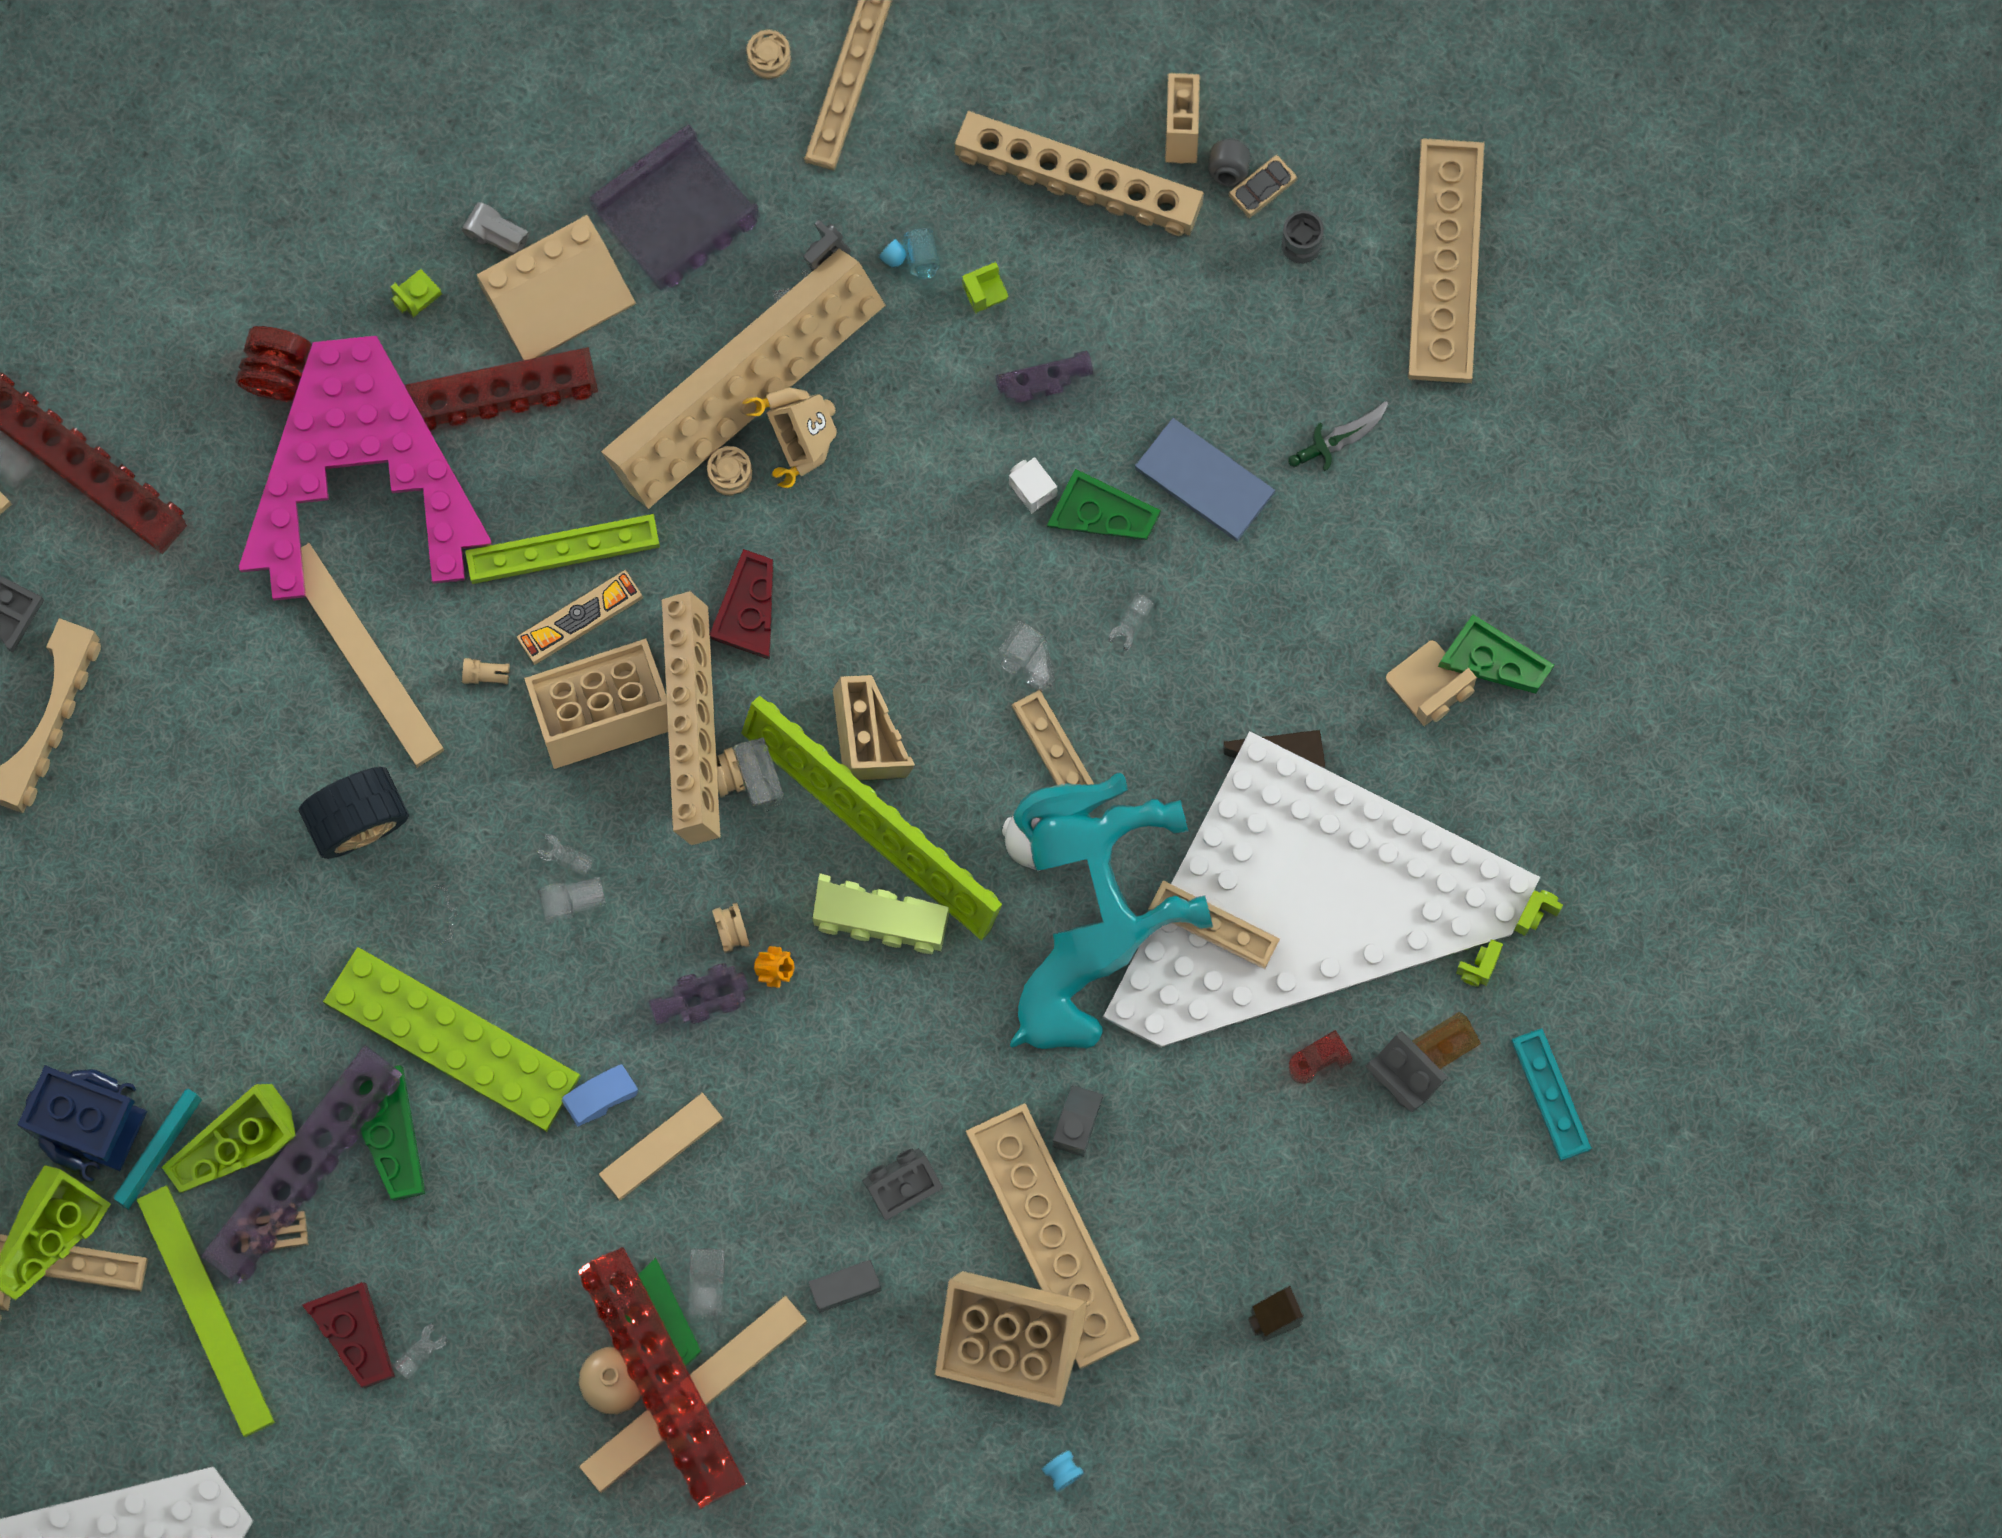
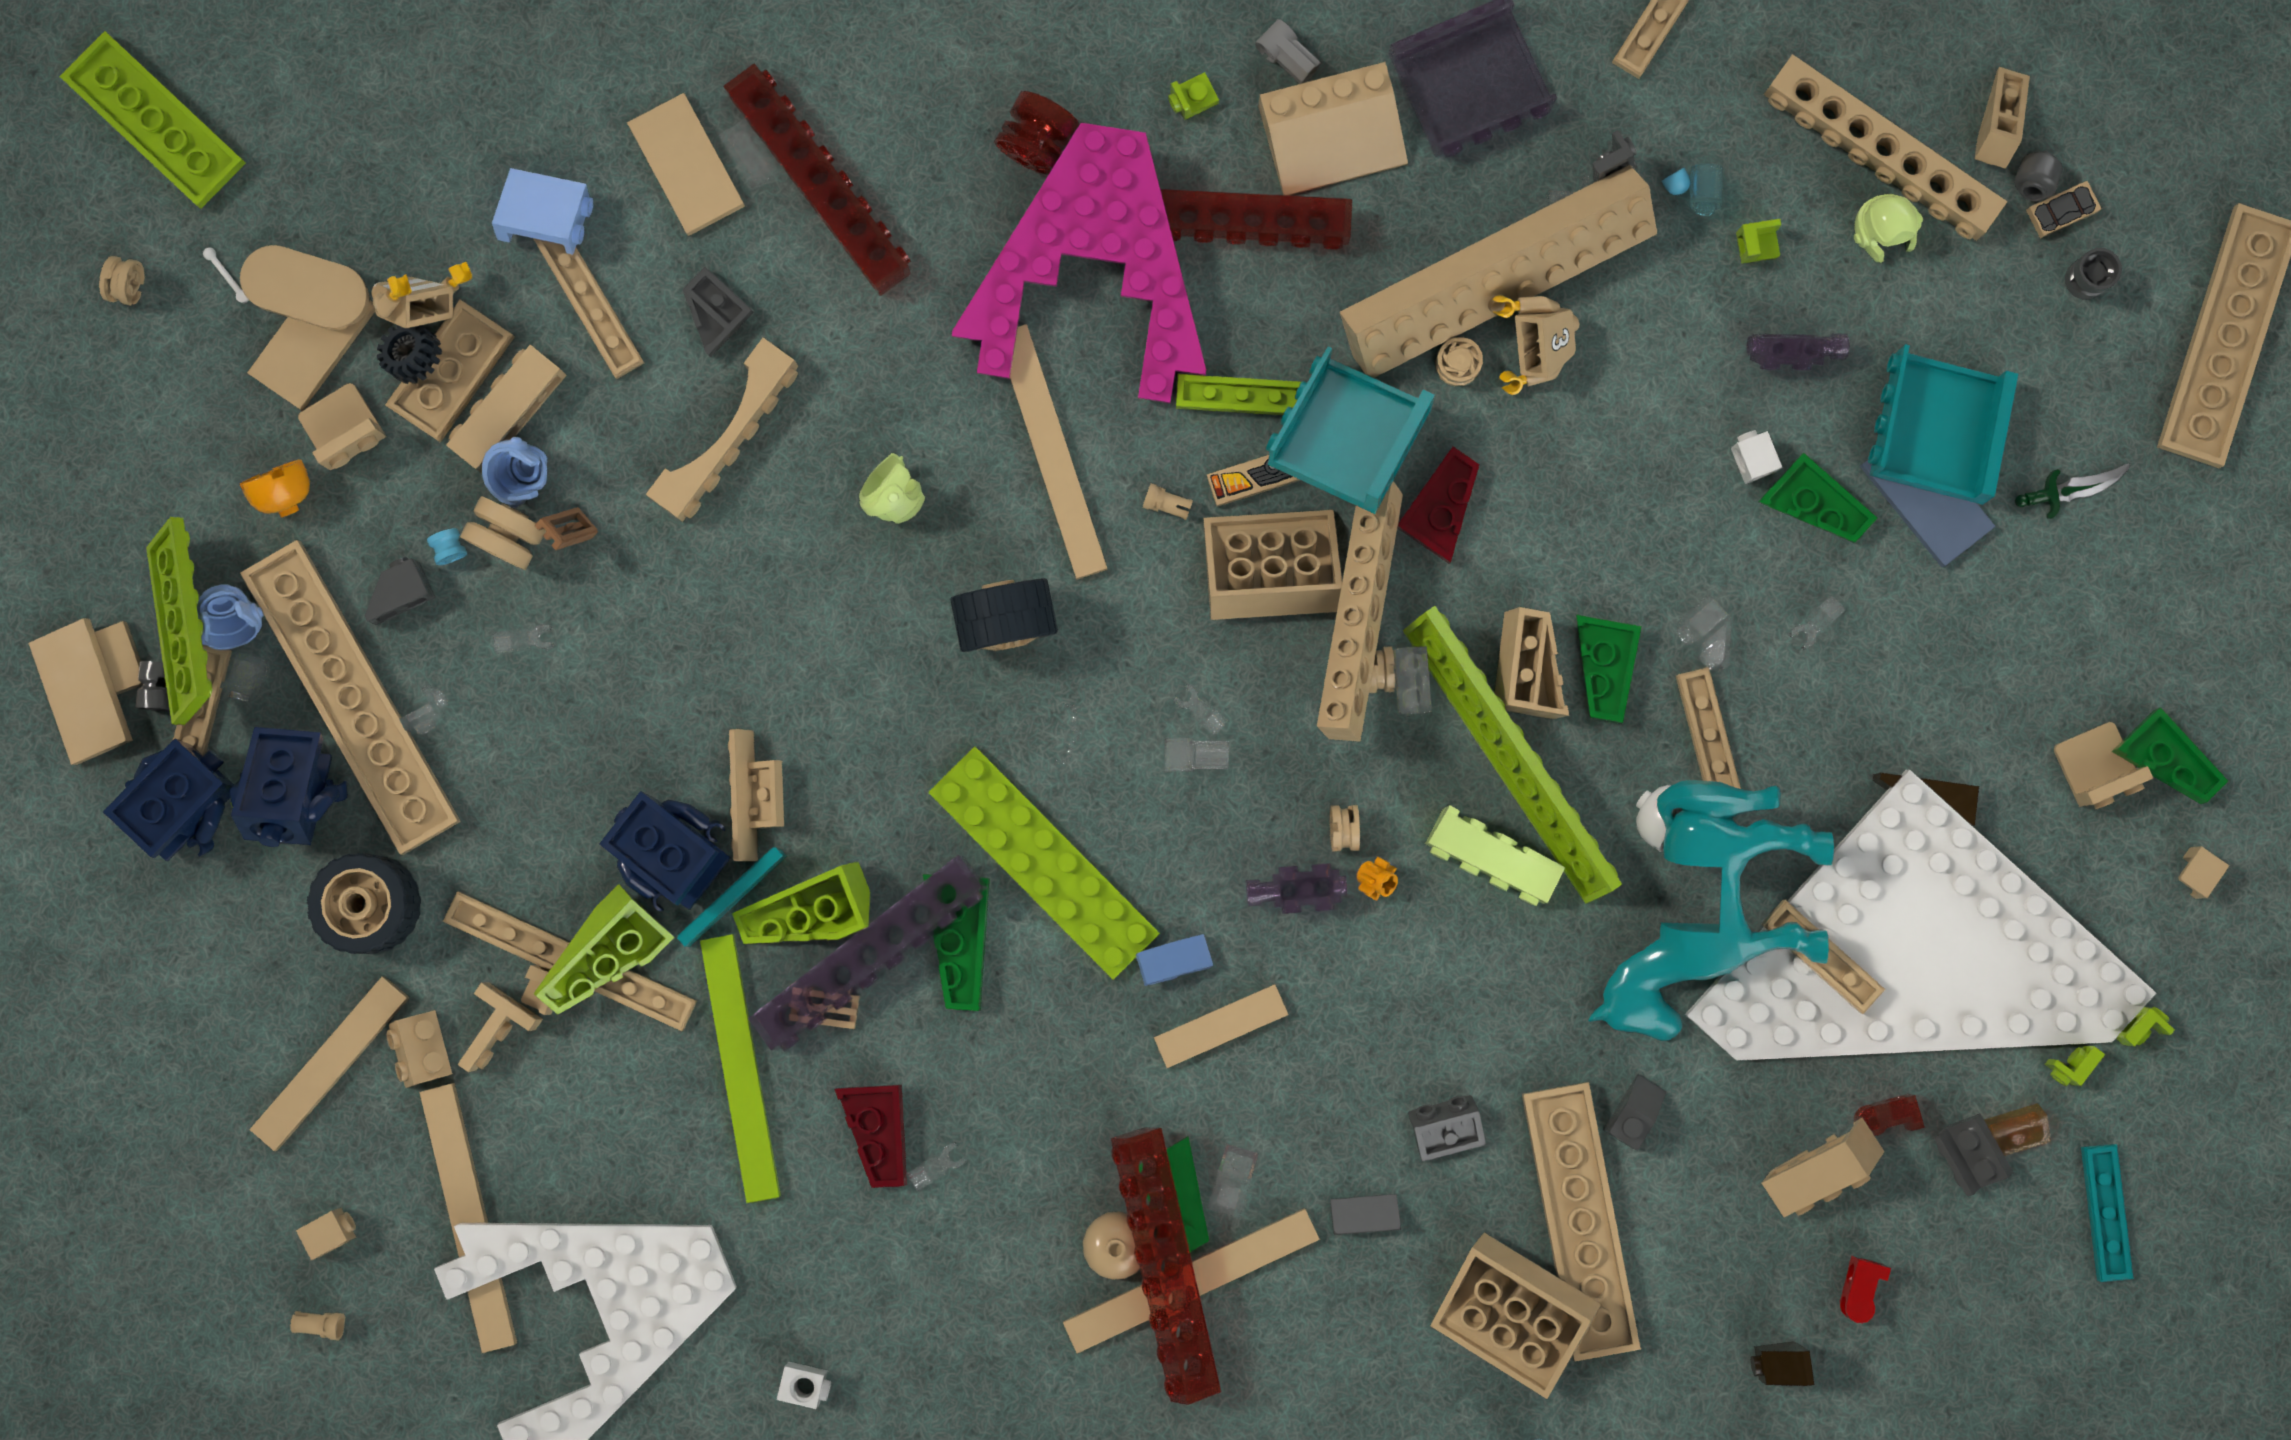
camera: 15 degrees right, 10 degrees up
(156, 1048) = (754, 795): none -> tan bracket
(215, 732) = (891, 492): none -> yellowish green helmet
(637, 559) = (1348, 432): none -> teal panel
(944, 712) = (1608, 665): none -> green wing
(1099, 239) = (1889, 221): none -> yellowish green helmet
(1198, 412) = (1942, 427): none -> teal panel
(1266, 1120) = (1824, 1170): none -> tan wedge
(1334, 1236) = (1860, 1288): none -> red leg
(1550, 753) = (2202, 871): none -> tan panel

